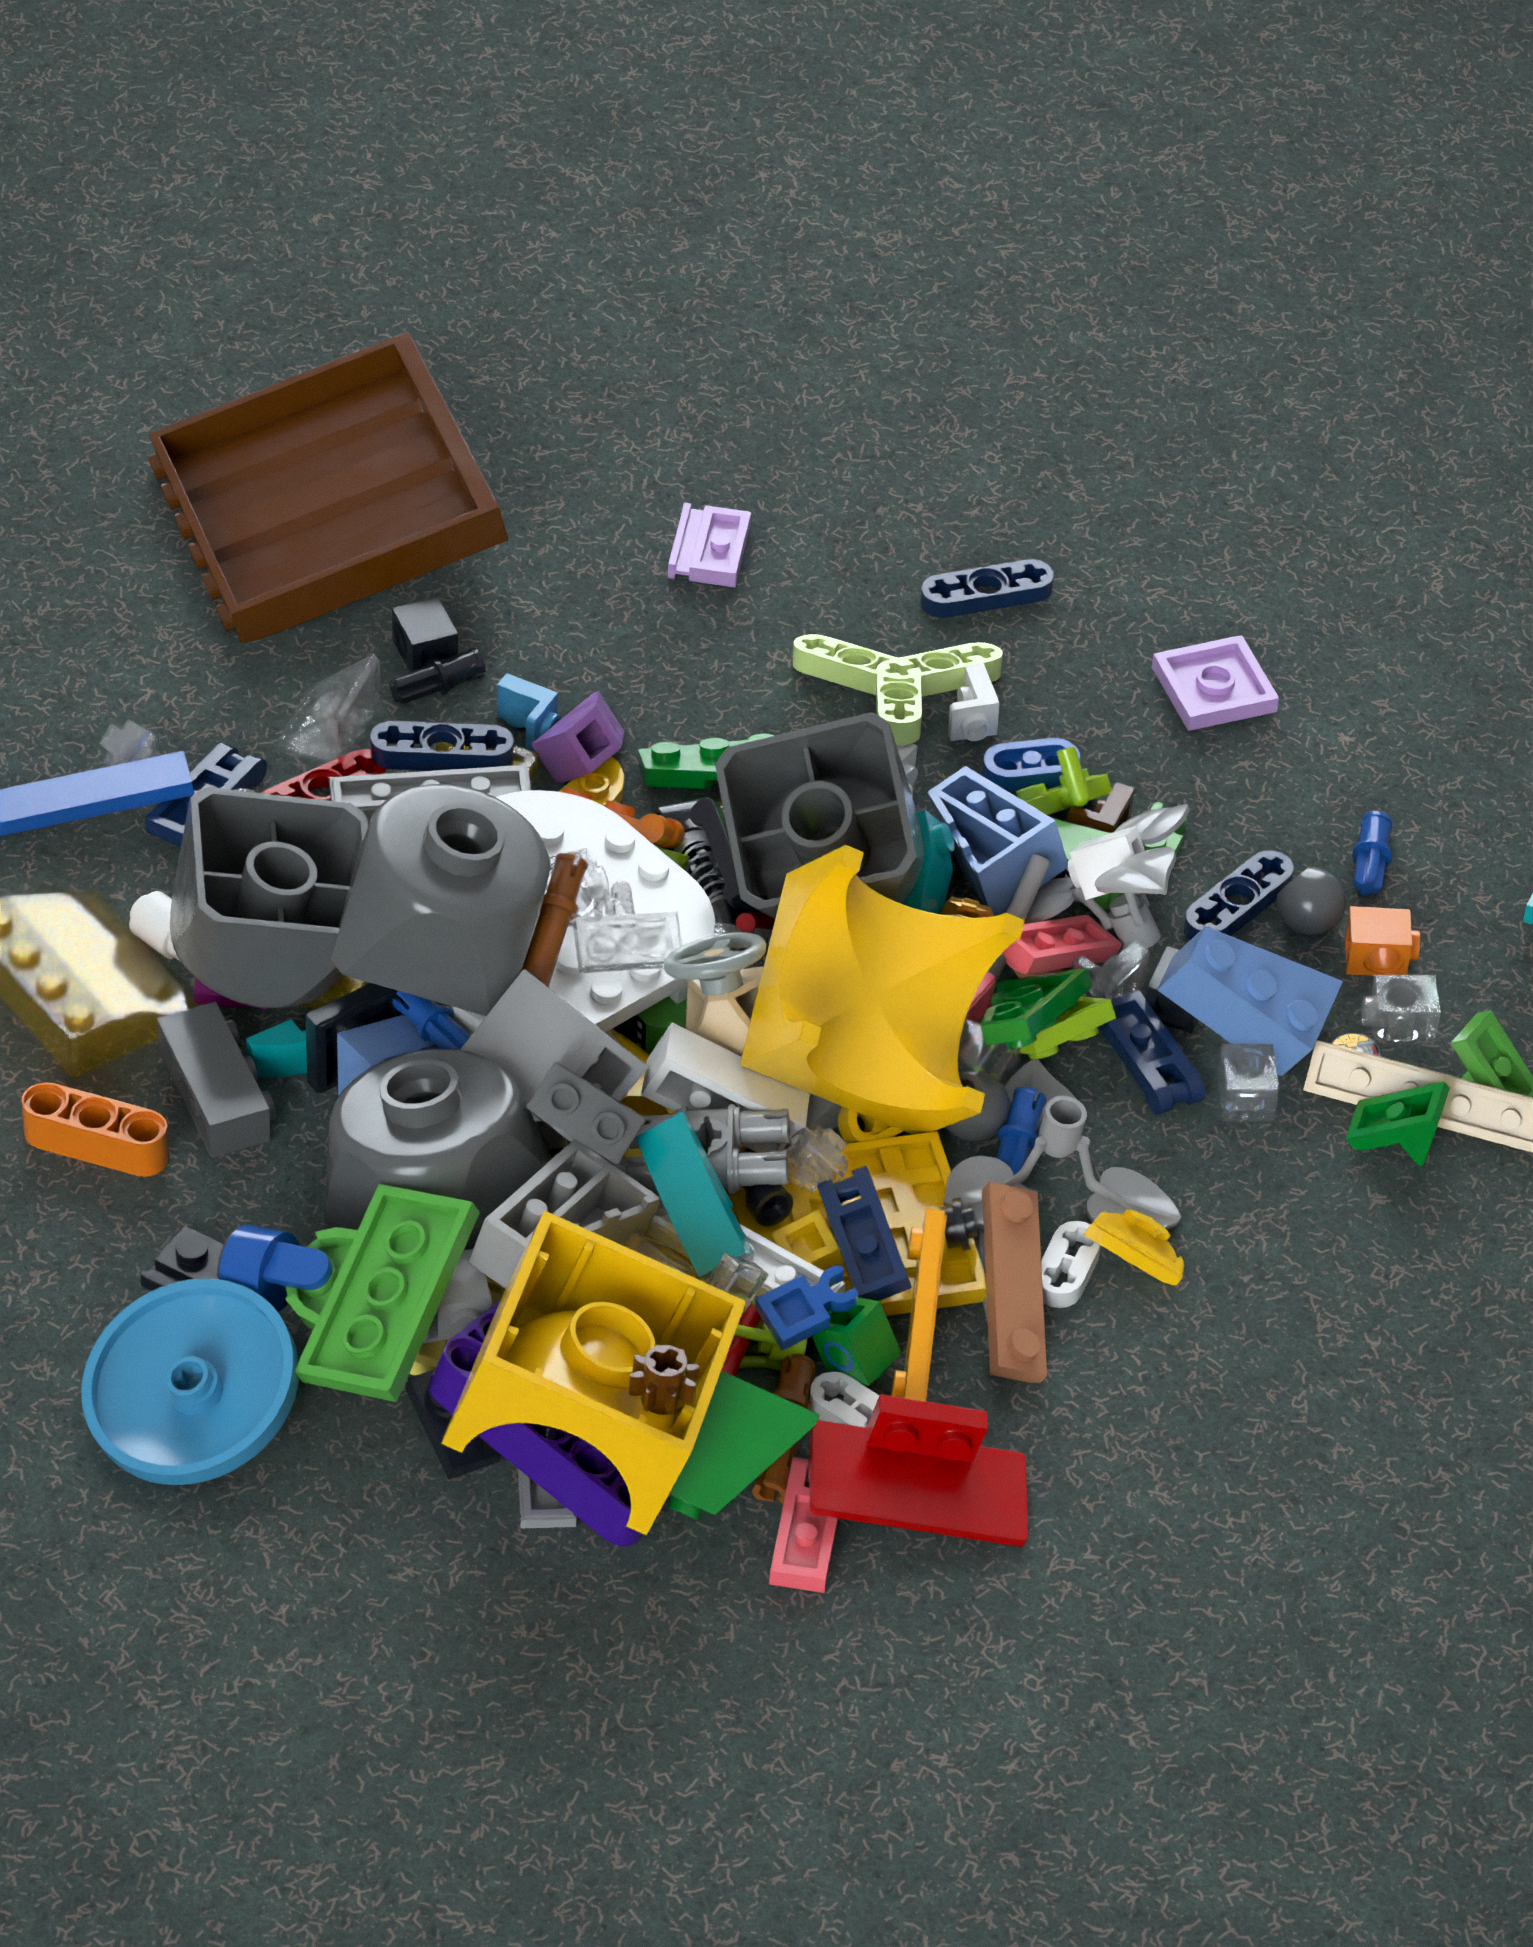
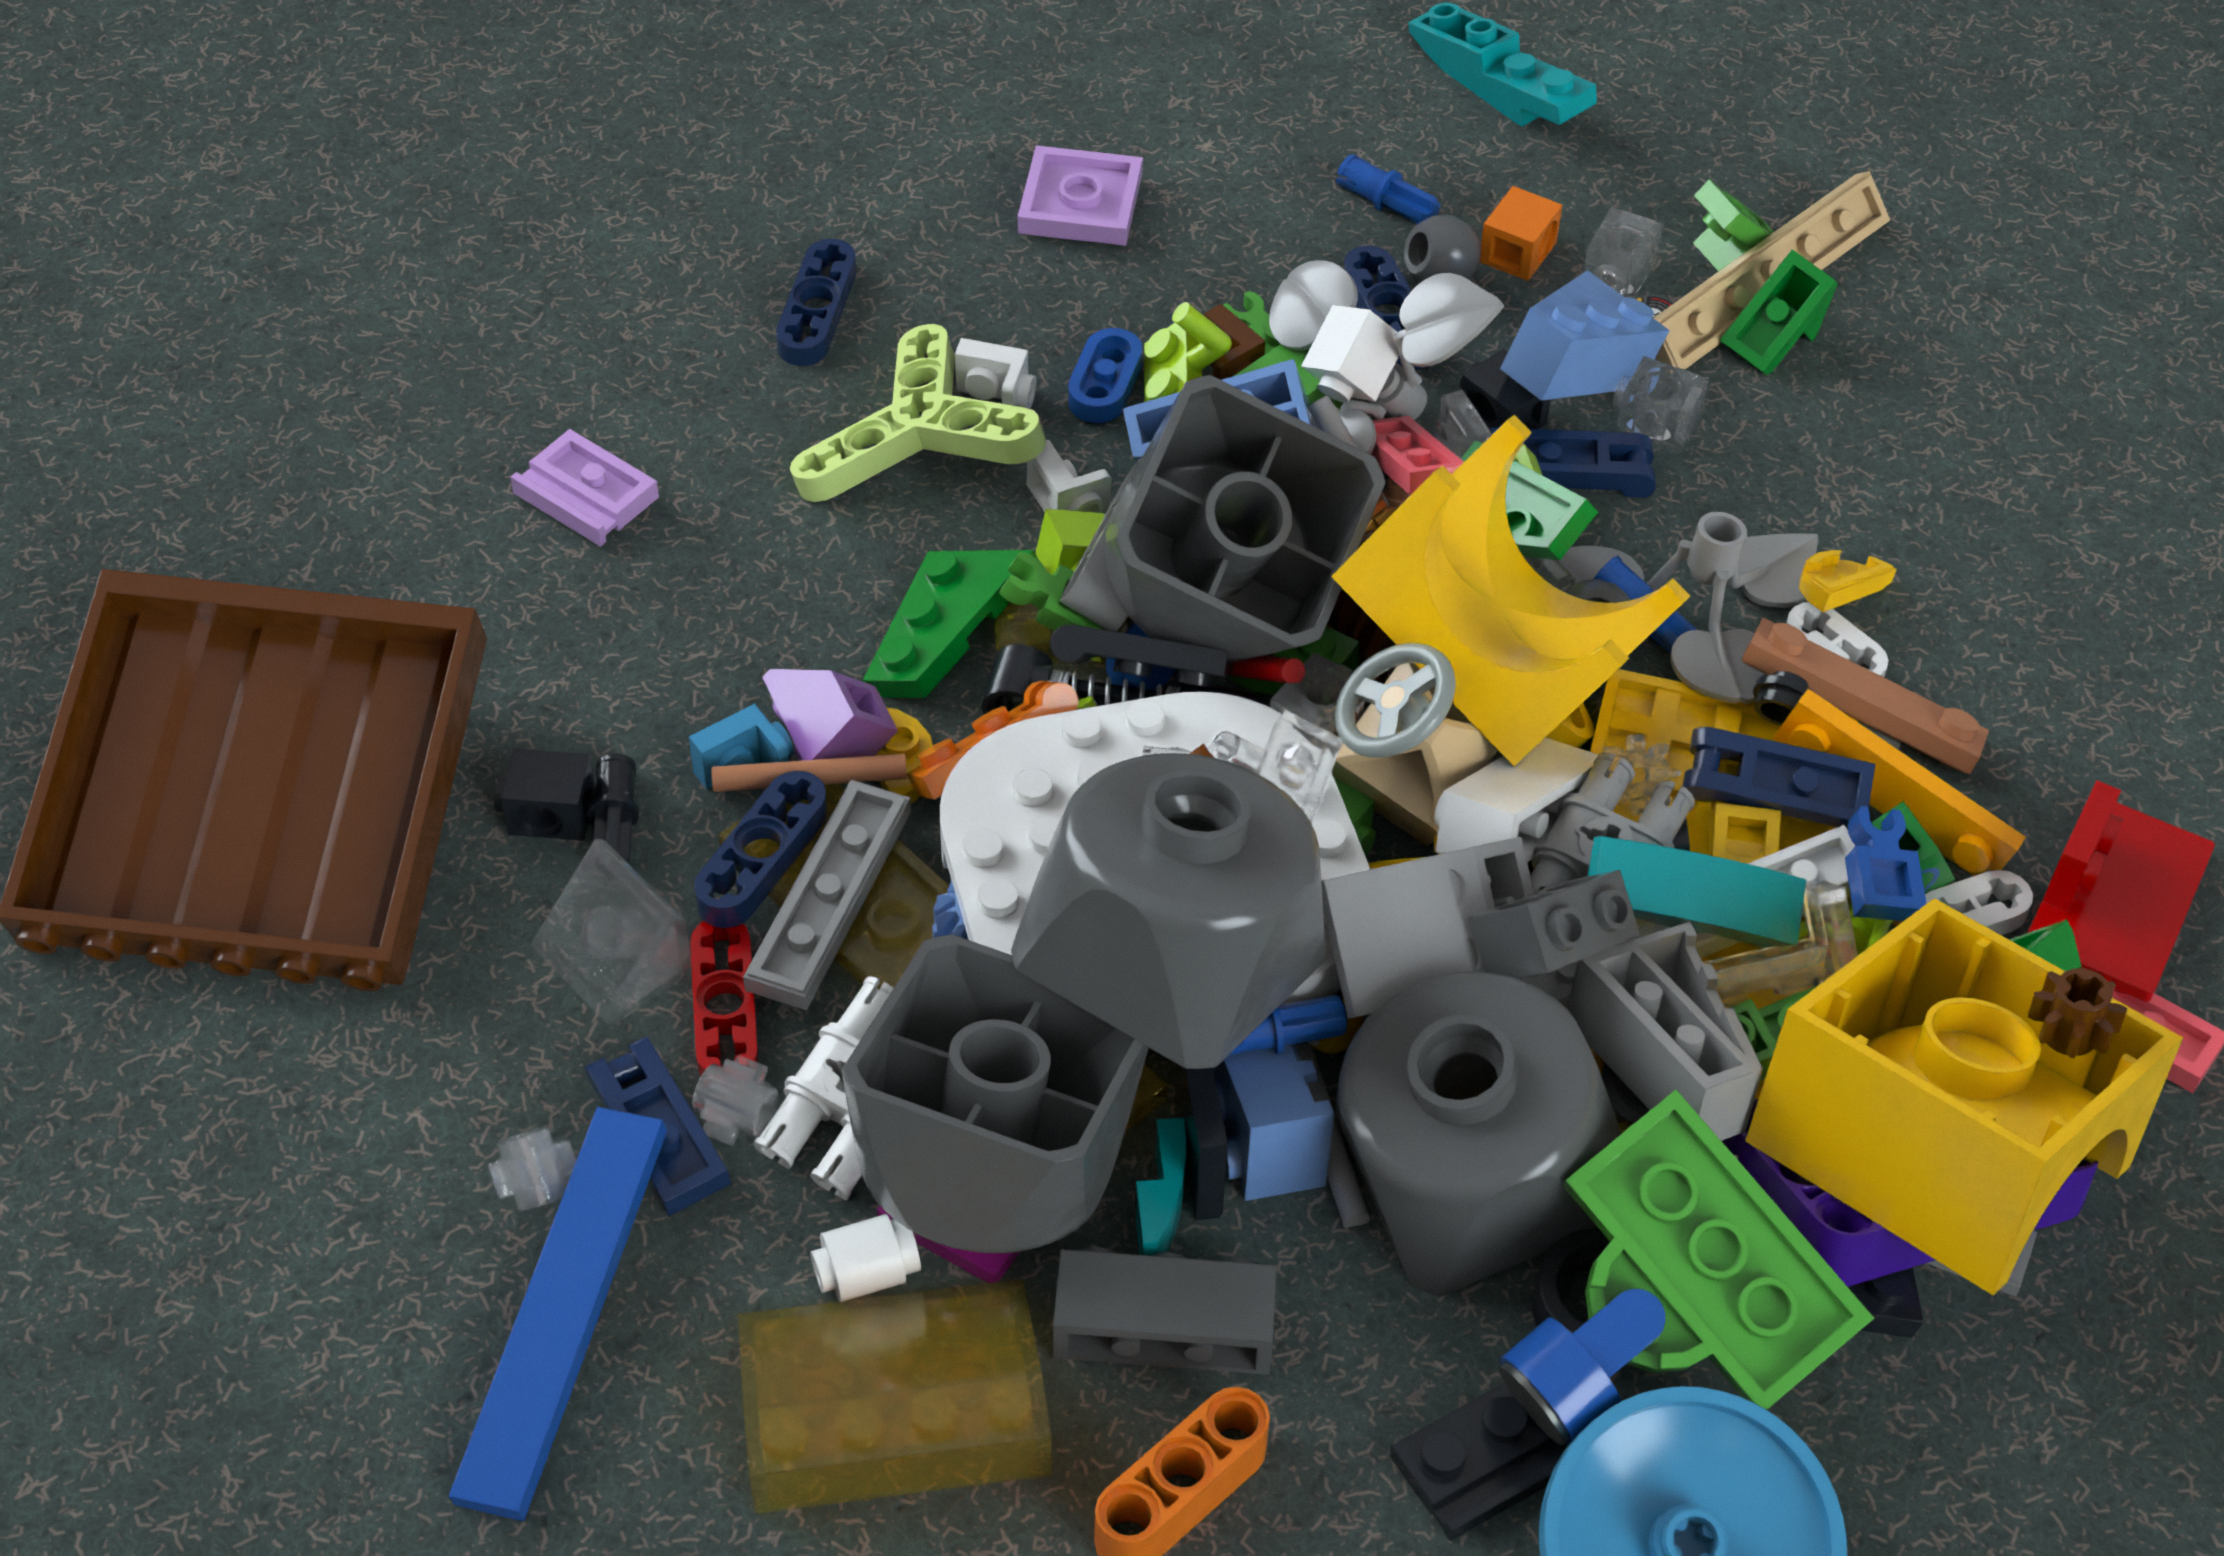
camera: 60 degrees left, 5 degrees up
(524, 745) = (827, 770): none -> nougat bar

